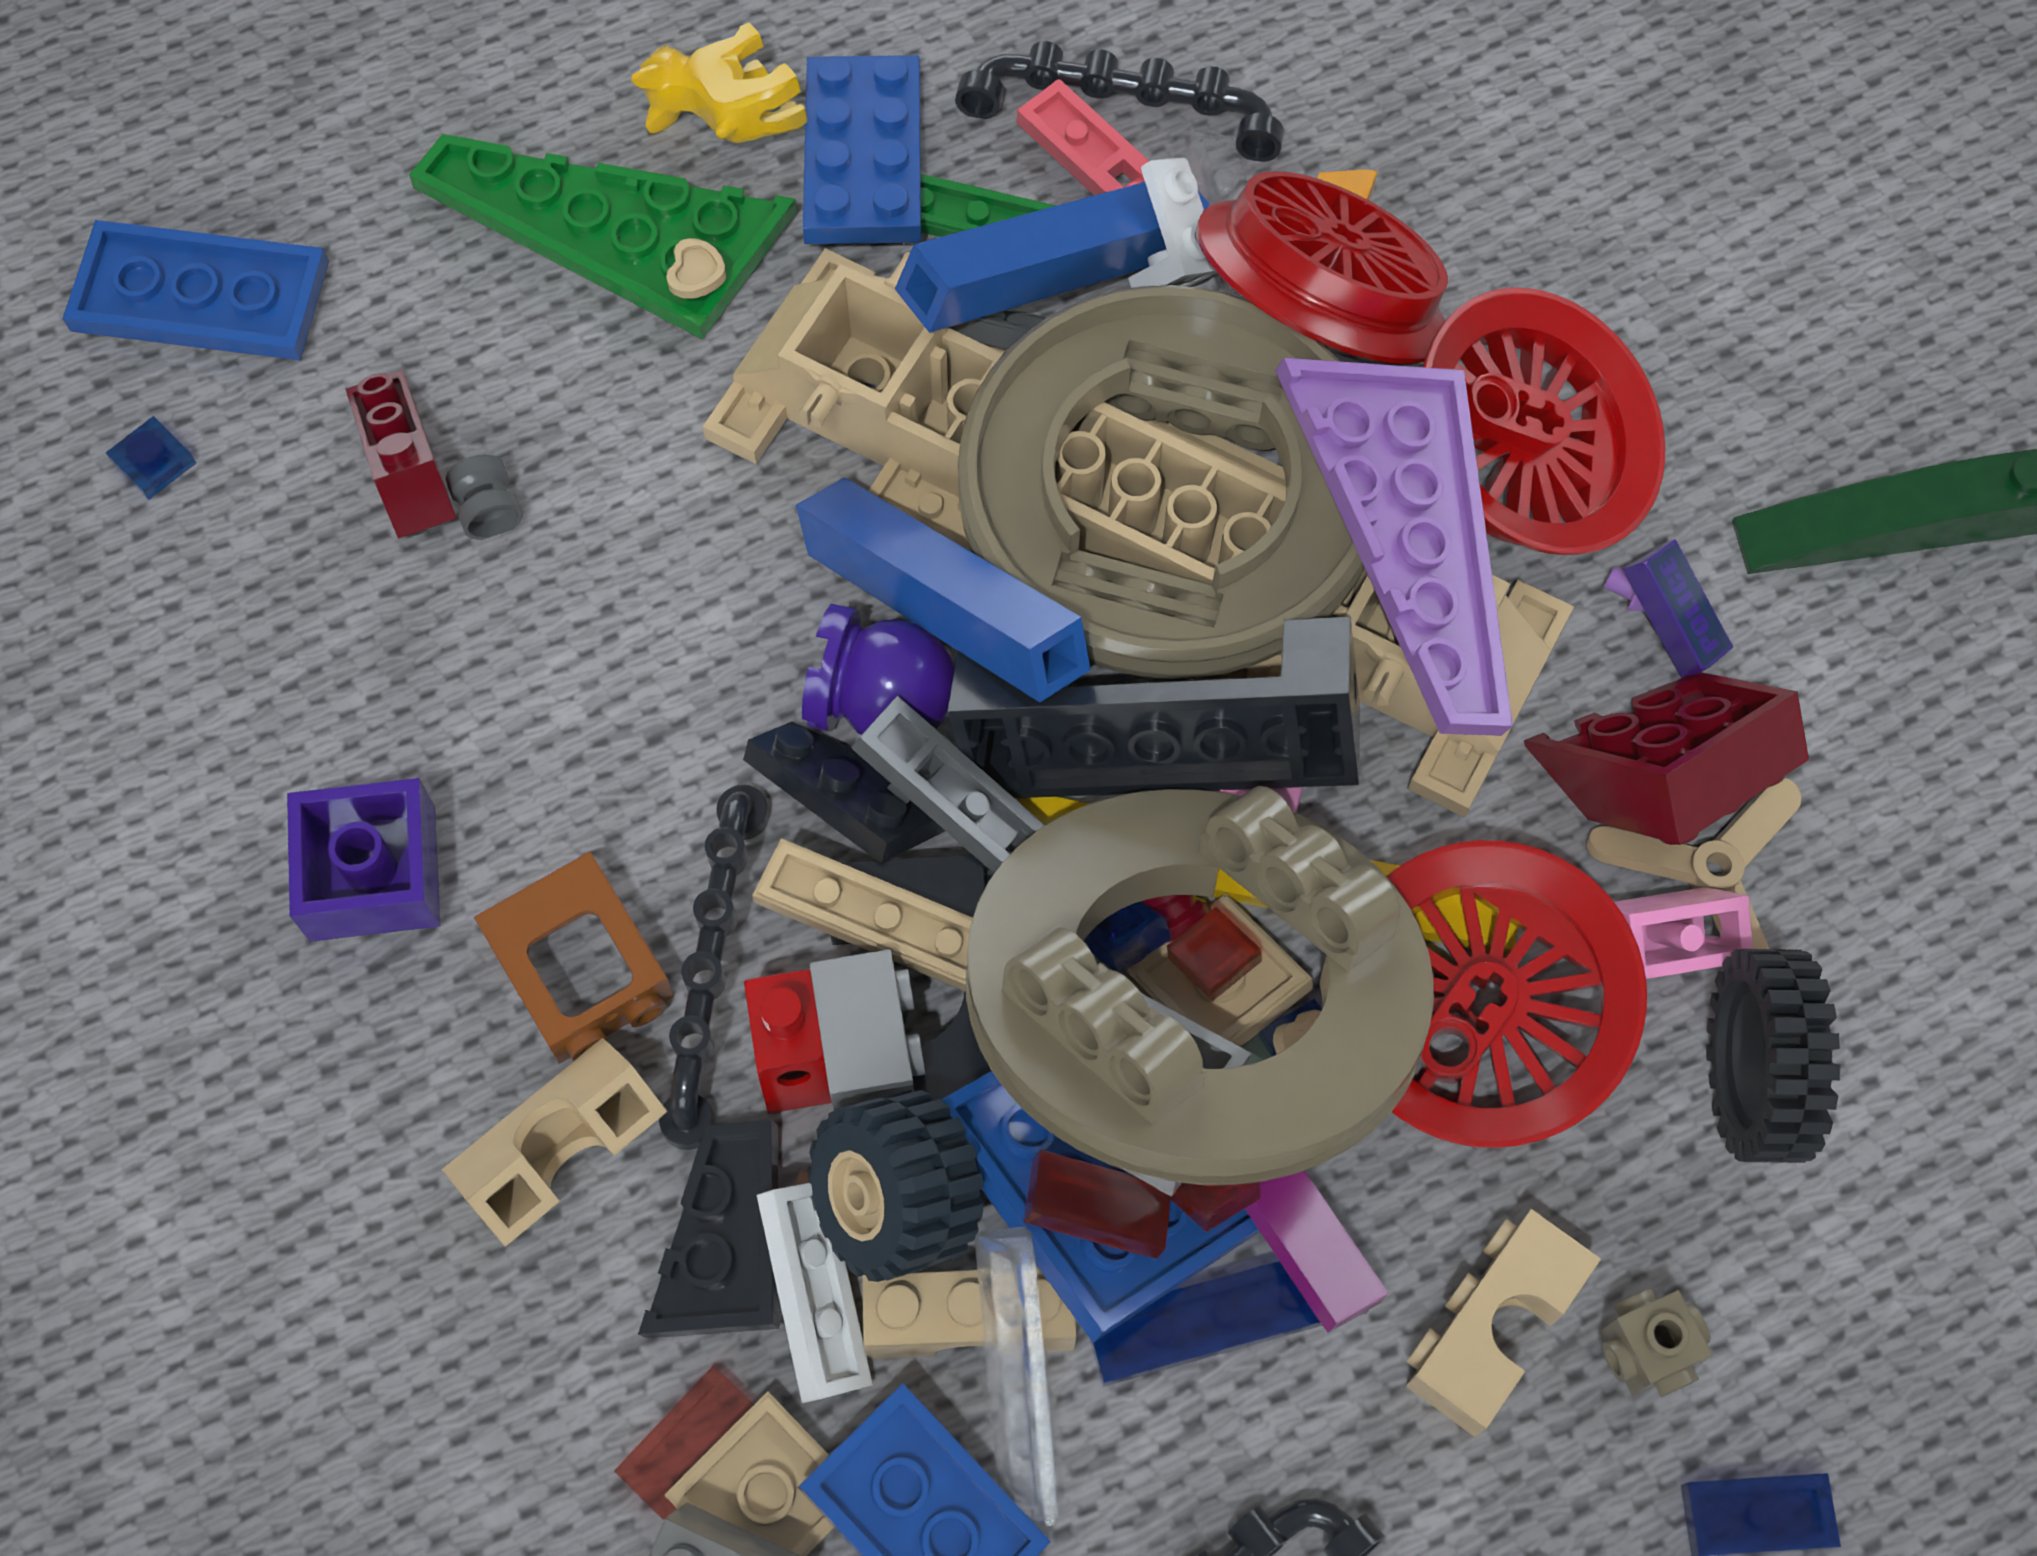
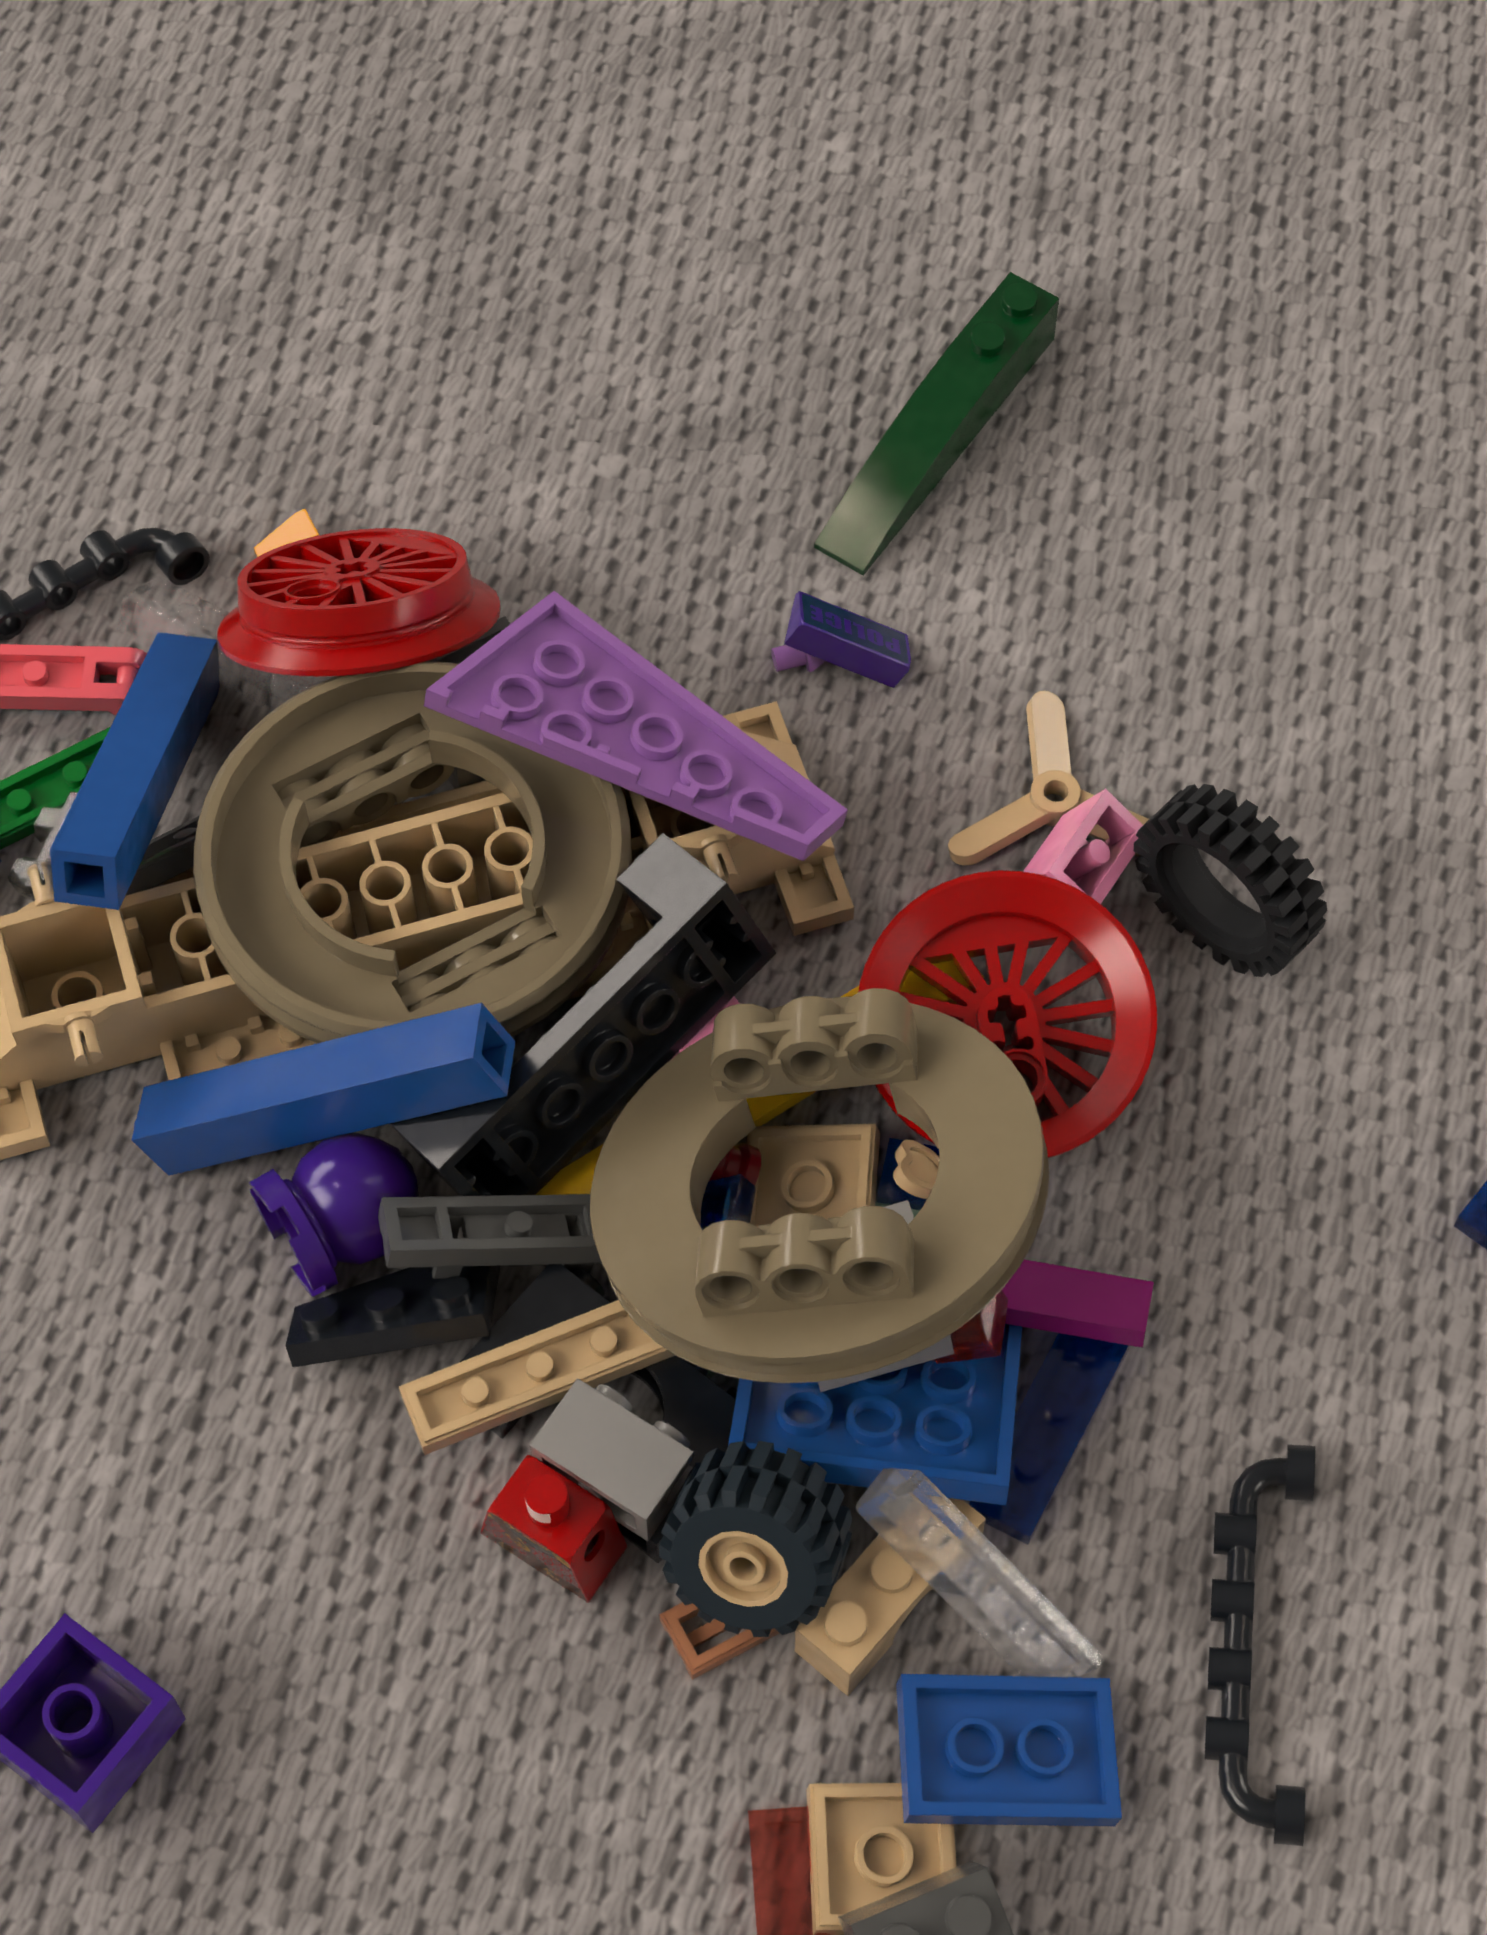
camera: 45 degrees left, 5 degrees down
(543, 909) = (265, 1617): dark orange window -> none
(585, 1105) = (456, 1717): tan arch -> none
(719, 1259) = (661, 1717): black wing -> none
(741, 817) = (332, 1411): black bar -> none
(813, 1297) = (769, 1683): white plate -> none
(1097, 1204) = (910, 1409): clear red tile -> none
(1177, 209) = (233, 684): white bracket -> none
(1214, 953) = (793, 1169): clear red plate -> none
(1463, 1368) = (1245, 1284): tan arch -> none
(1595, 483) = (671, 595): red piece -> none
(1638, 1357) = (1347, 1145): dark tan brick -> none
(1679, 756) = (954, 742): dark red wedge -> none

